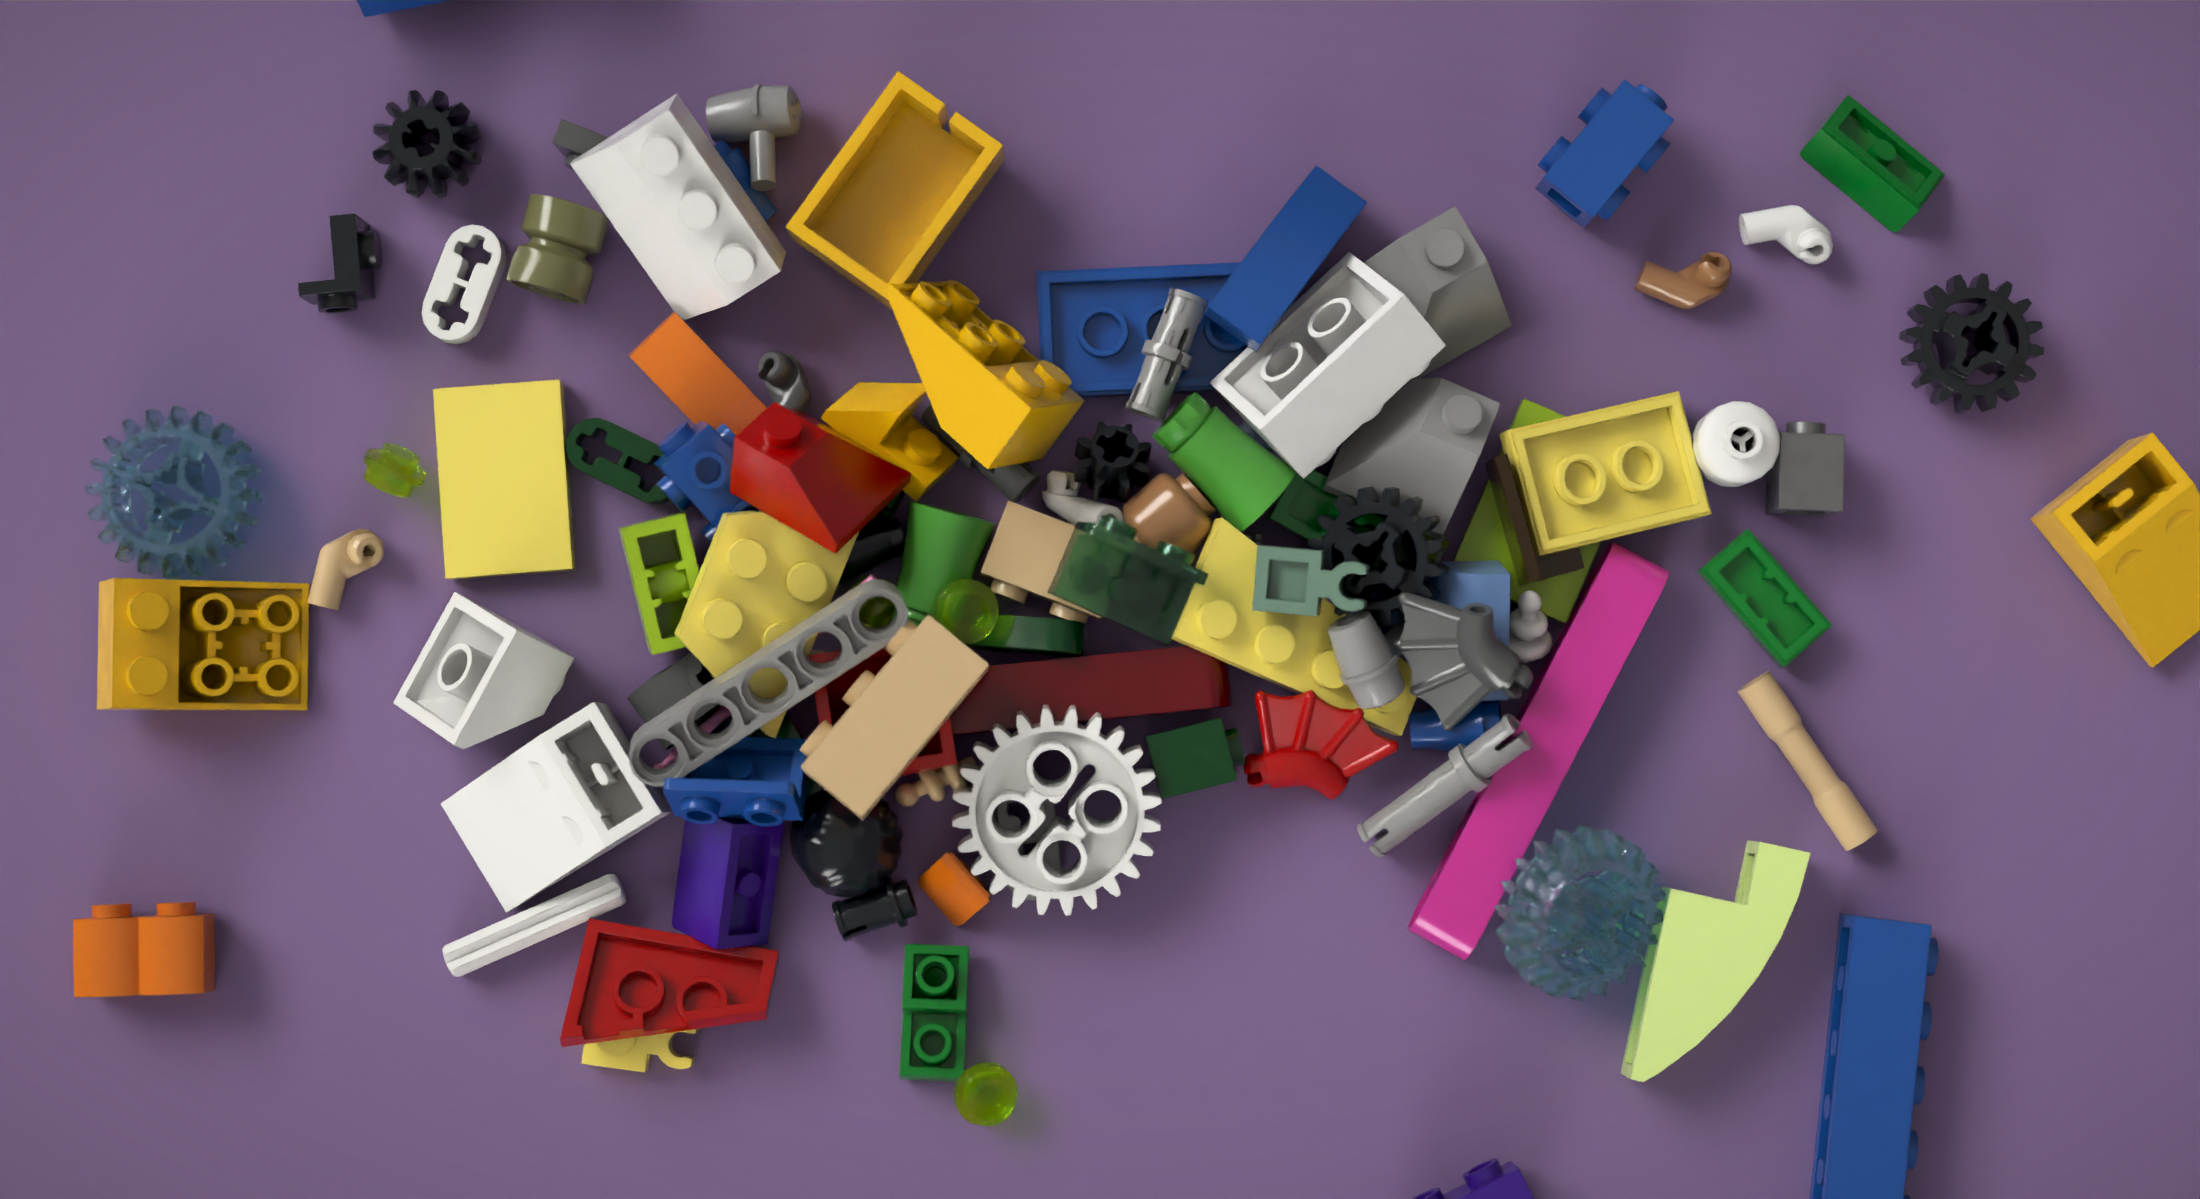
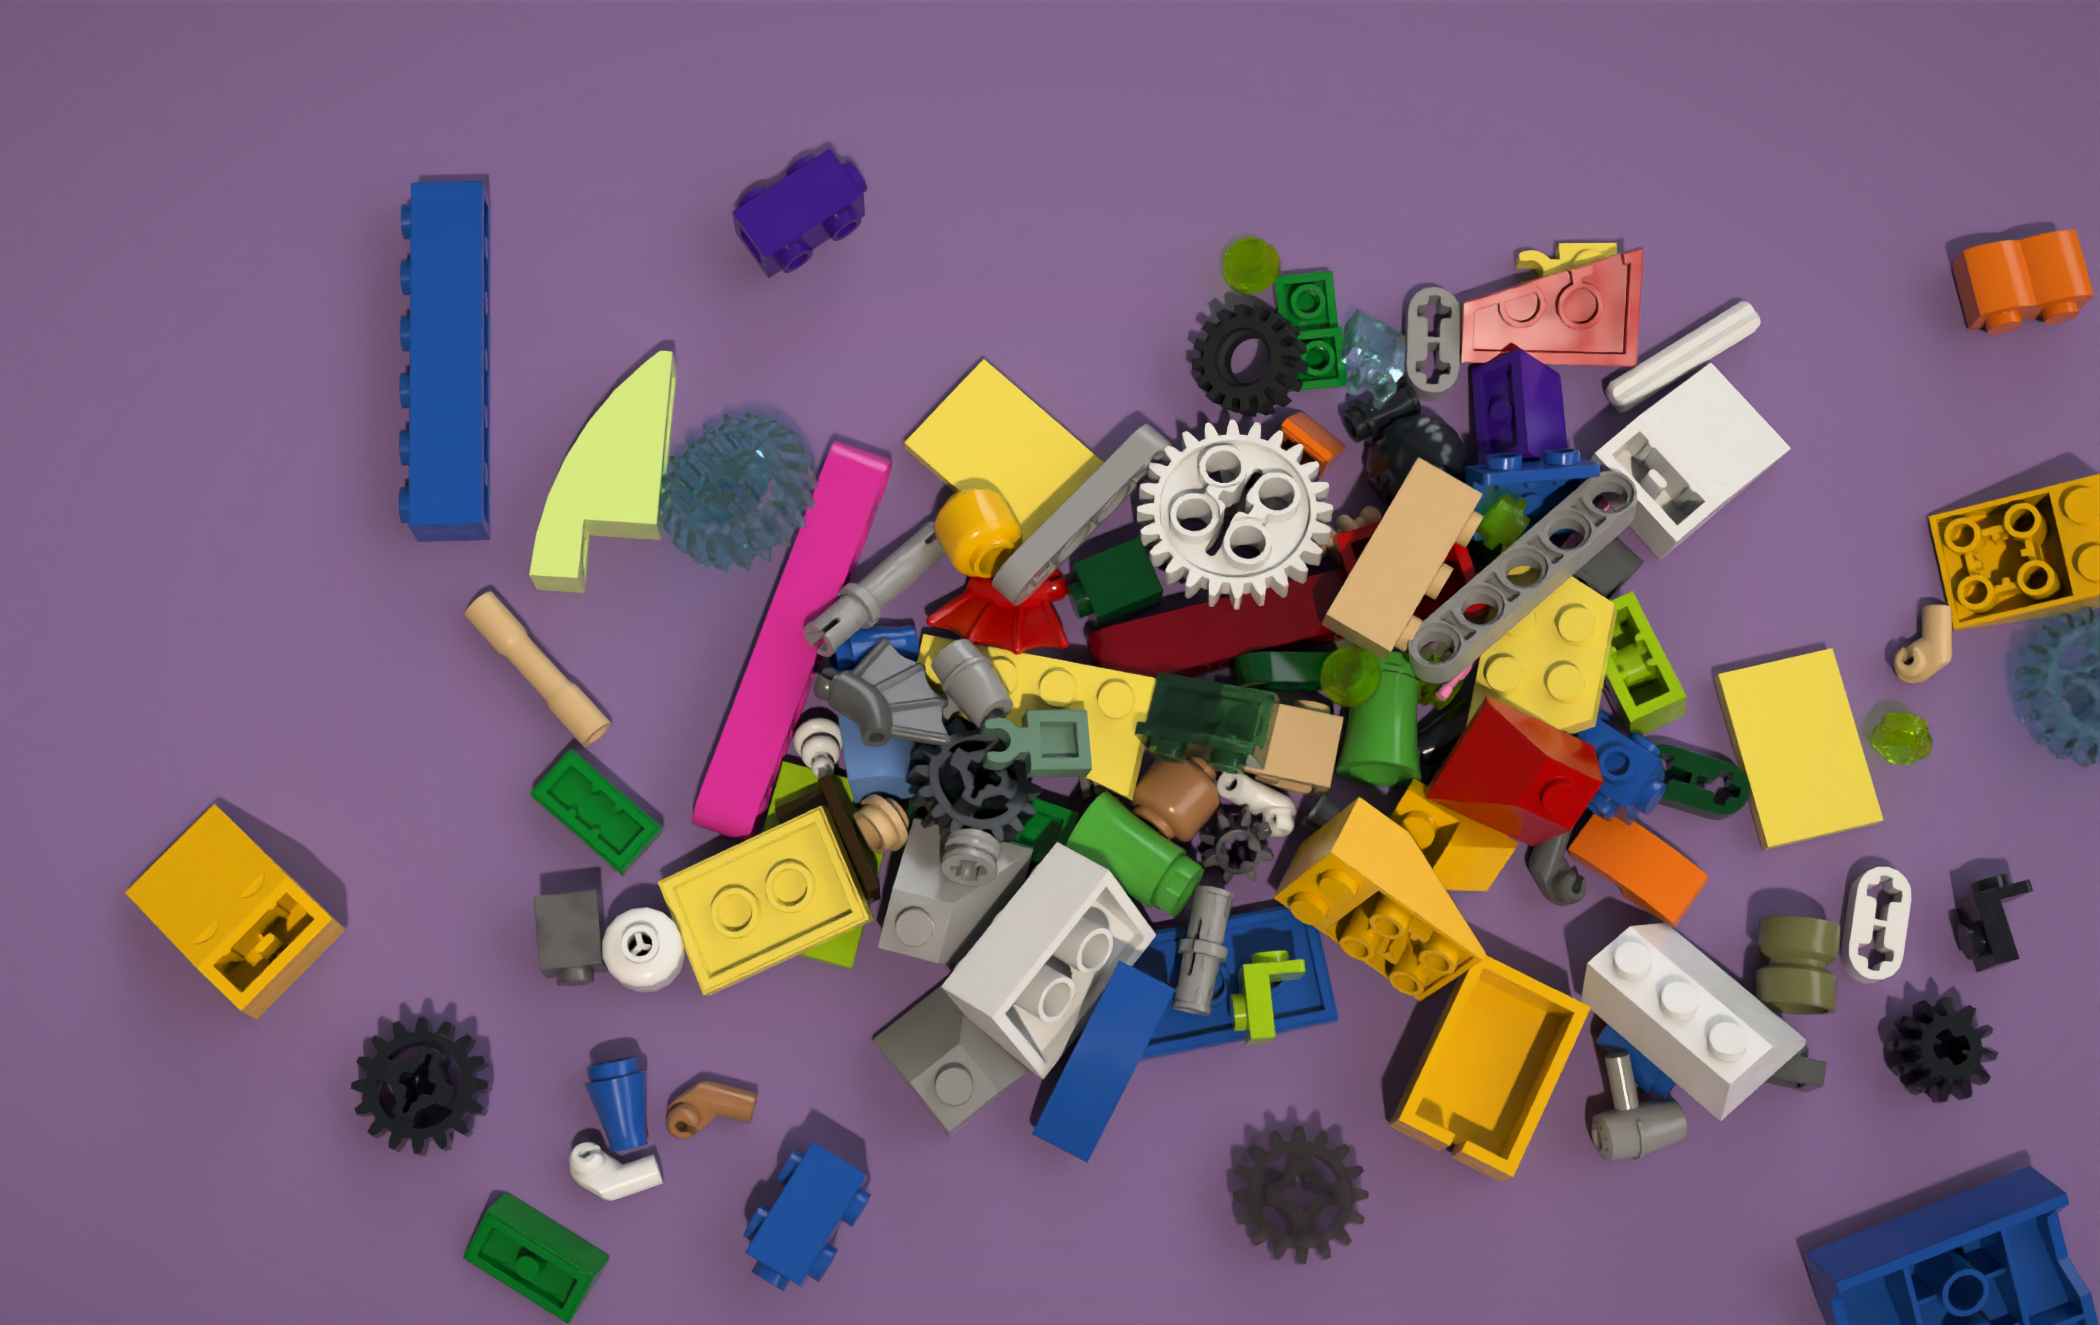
camera: 165 degrees right, 10 degrees down
(481, 675) = (1780, 563): white slope -> none
(776, 747) = (1503, 521): none -> clear neon green plate
(789, 976) = (1445, 344): none -> light grey beam
(870, 970) = (1374, 355): none -> clear light blue plate
(1043, 981) = (1220, 345): none -> black tyre
(1083, 97) = (1299, 1166): none -> clear smoke gear
(1127, 287) = (1252, 1007): none -> lime bracket
(1220, 832) = (1079, 515): none -> light grey beam
(1281, 915) = (1002, 442): none -> light yellow tile
(1331, 830) = (977, 532): none -> yellow head
(1396, 473) = (971, 857): none -> light grey bush
(1476, 533) = (881, 824): none -> tan plate
(1774, 301) = (620, 1101): none -> blue cone

